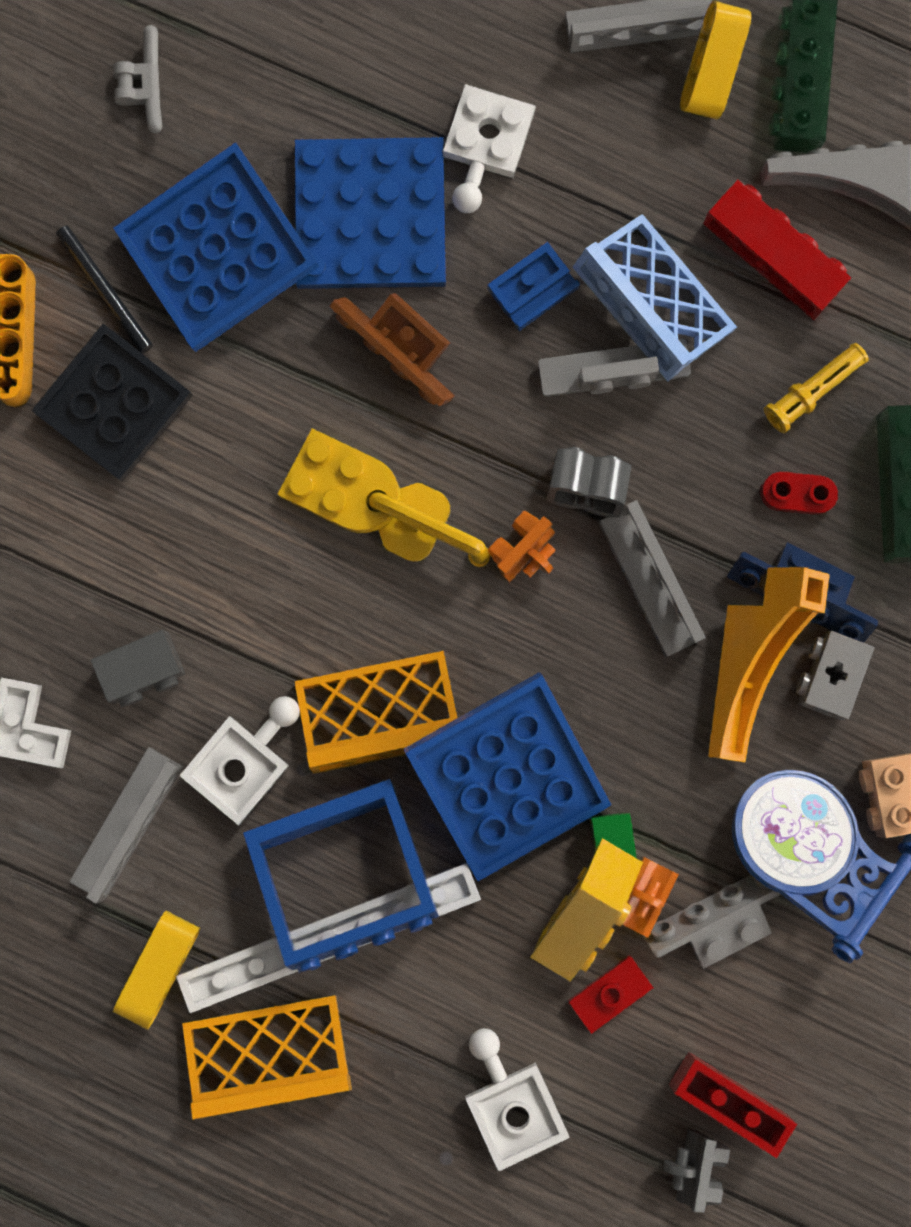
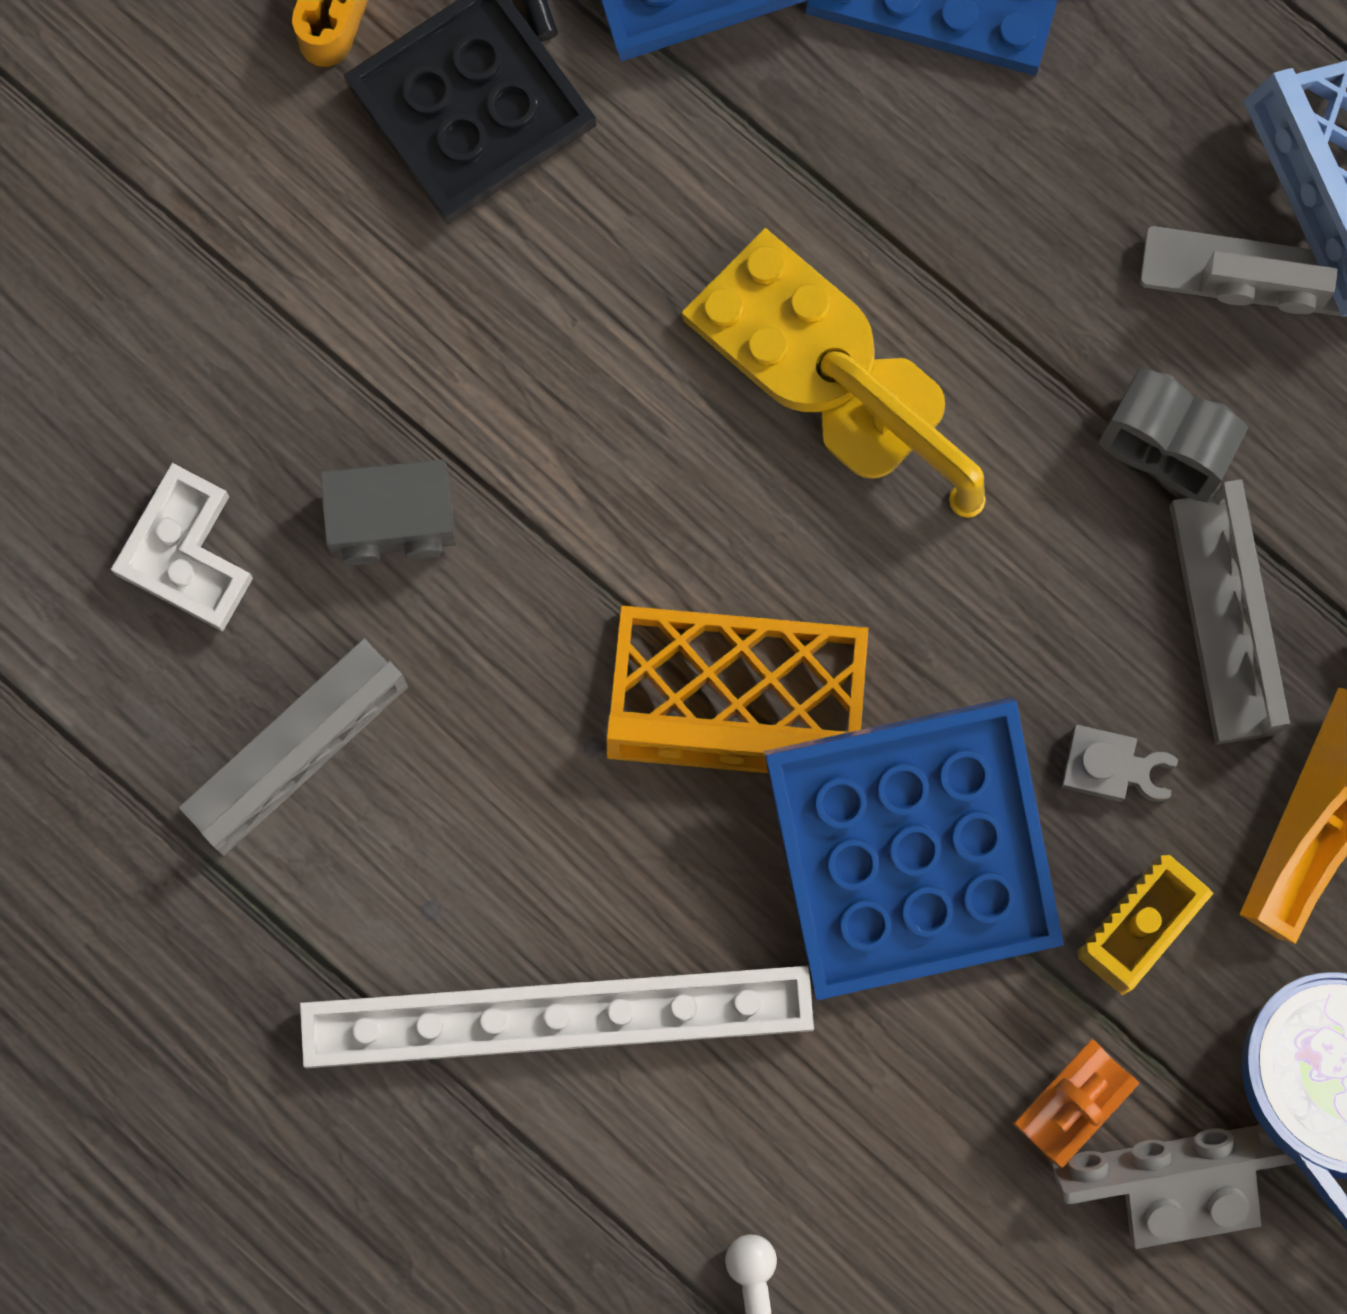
camera: 20 degrees right, 5 degrees down
(156, 970) = (272, 985): yellow beam -> none
(261, 764) = (502, 672): white plate -> none
(272, 1091) = (394, 1231): light orange fence -> none
(321, 817) = (605, 826): blue window -> none
(402, 339) = (948, 134): dark orange bracket -> none
(514, 559) = (1048, 515): orange hips -> none
(533, 286) = (1173, 113): blue plate -> none
(588, 912) = (978, 1095): yellow wedge -> none
(605, 689) = (1105, 764): none -> light grey plate
(610, 994) = (975, 1244): red plate -> none
(614, 829) = (1049, 1000): green brick -> none
(655, 780) = (1144, 924): none -> yellow brick

